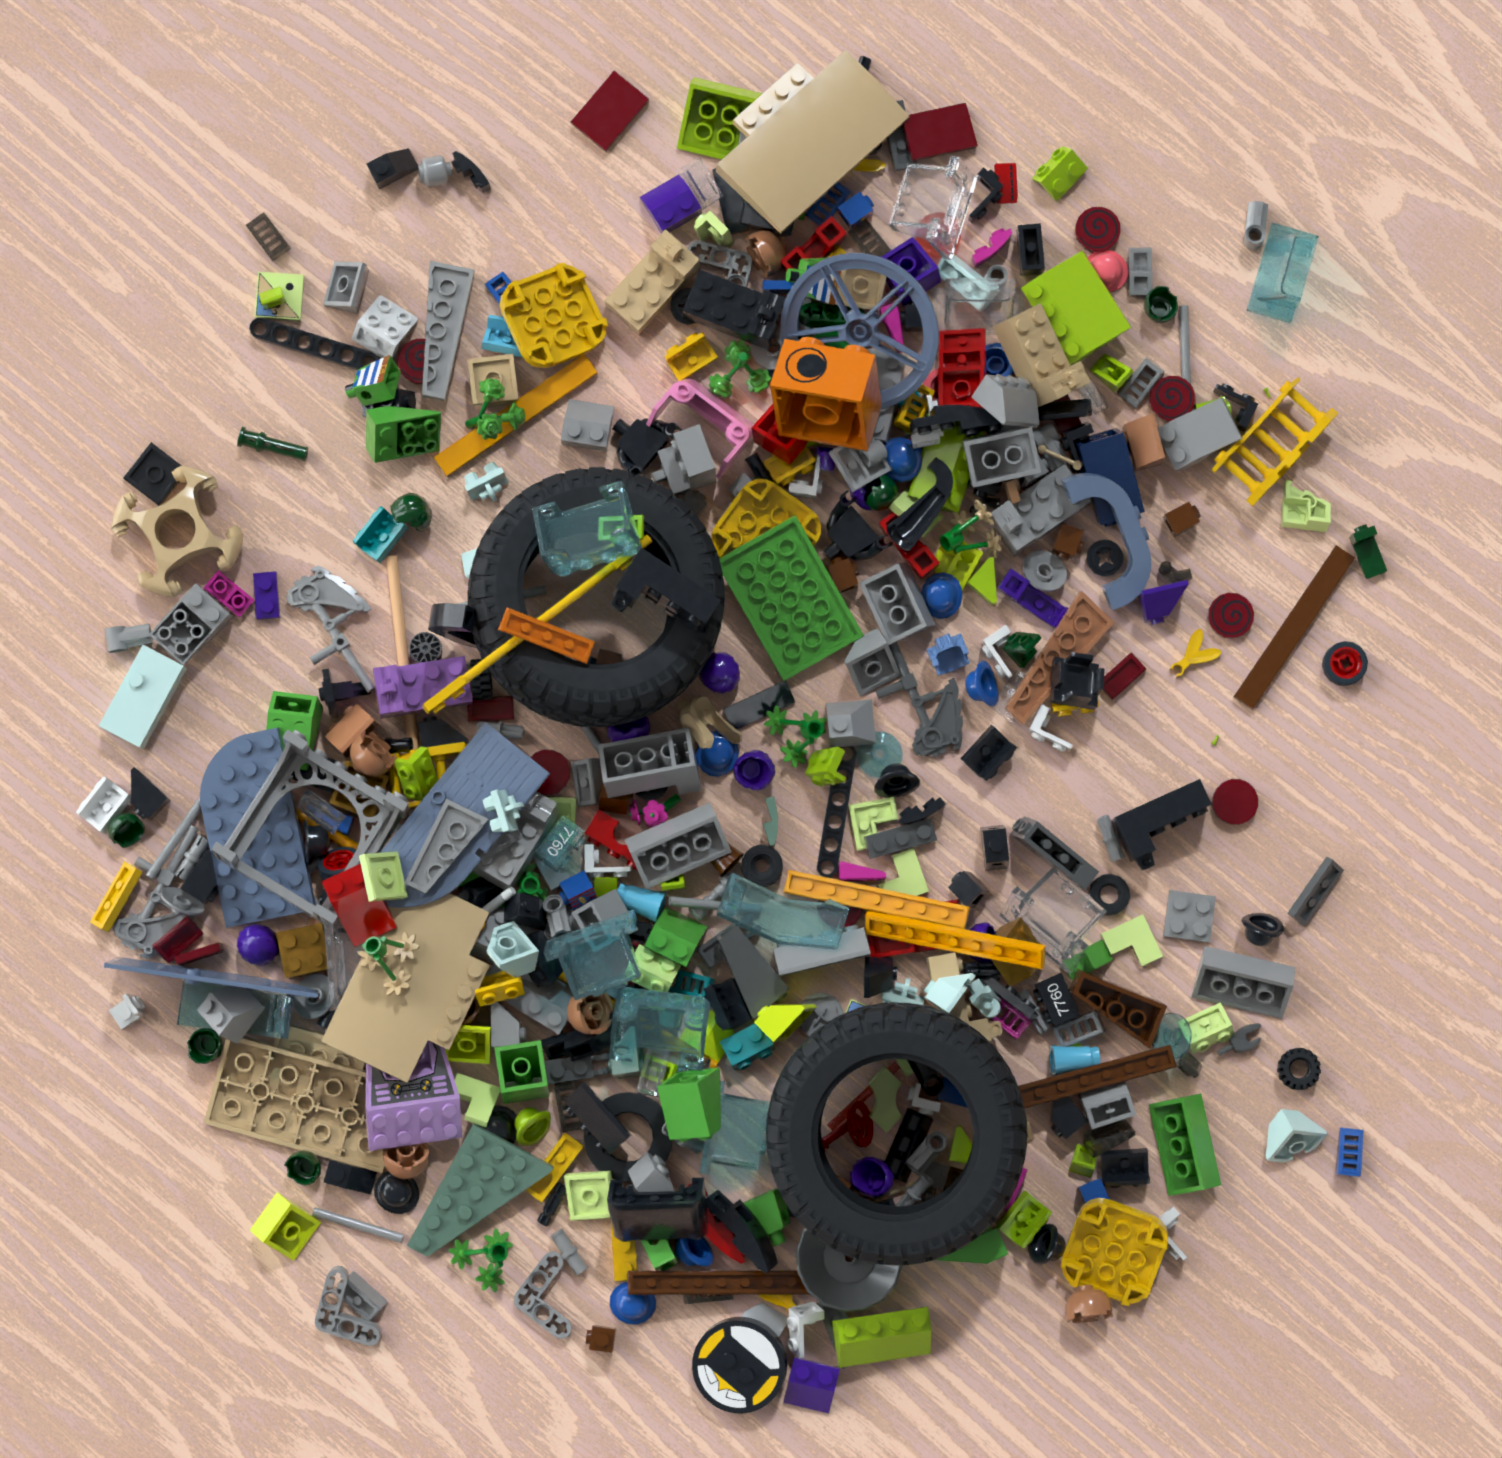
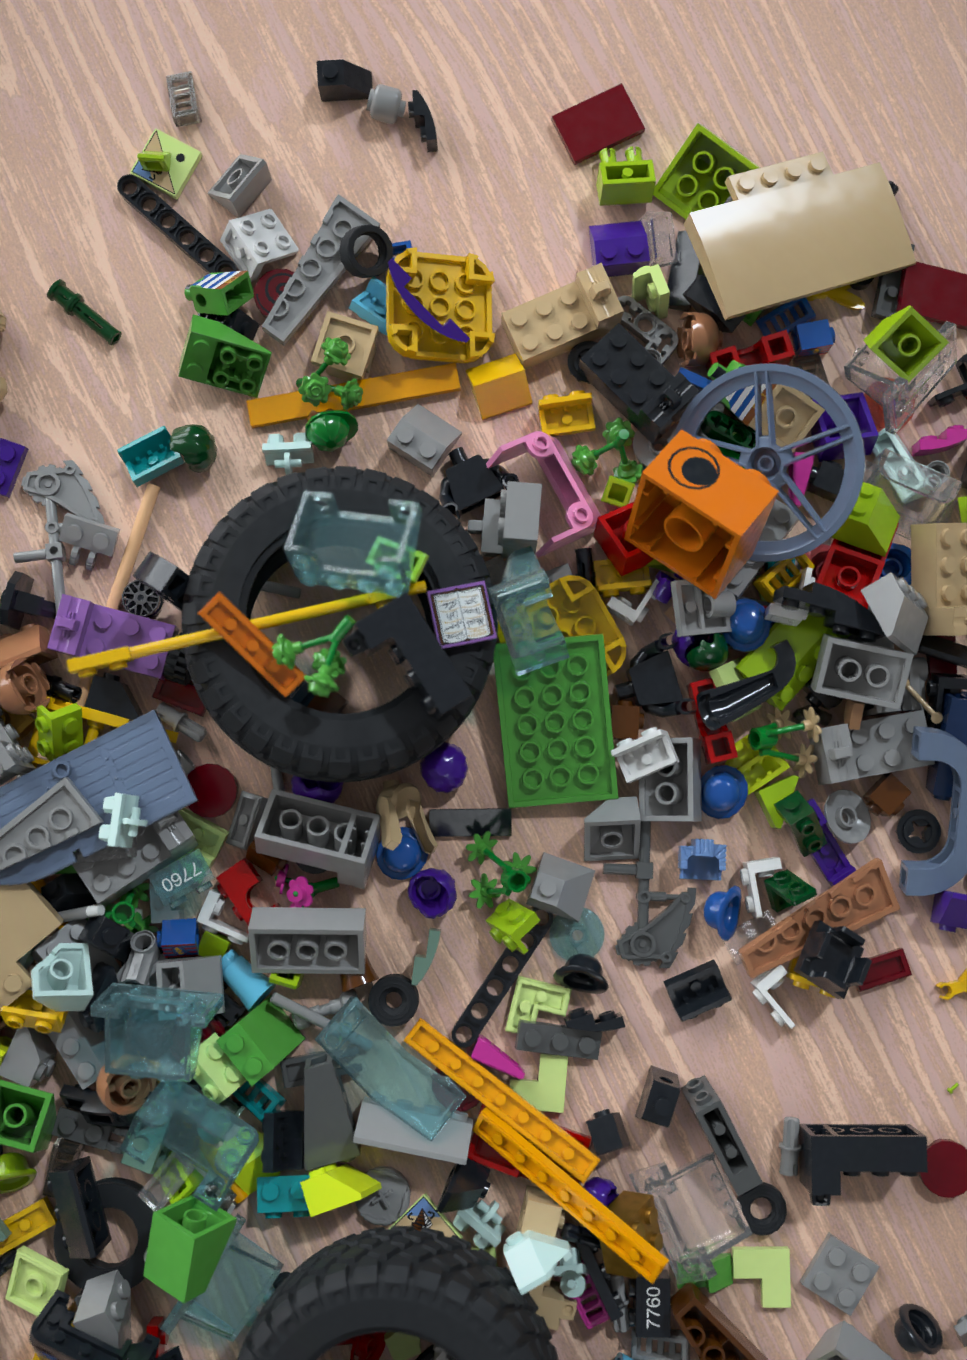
camera: 25 degrees right, 0 degrees up
(360, 618) = (88, 535): none -> light grey hinge
(490, 295) = (347, 251): none -> black tyre
(511, 450) = (330, 429): none -> green piece
(568, 333) = (400, 279): none -> dark purple slope
(604, 625) = (327, 662): none -> bright green plant
(626, 356) = (499, 386): none -> yellow slope
(653, 150) = (625, 181): none -> lime brick
(685, 547) = (461, 615): none -> tile
(730, 527) = (525, 616): none -> clear light blue windscreen
(757, 400) = (617, 492): none -> lime slope
(868, 592) = (645, 755): none -> white bracket
(926, 189) = (905, 342): none -> lime slope
(959, 337) = (870, 522): none -> lime slope
(1010, 591) = (802, 822): none -> dark green bracket

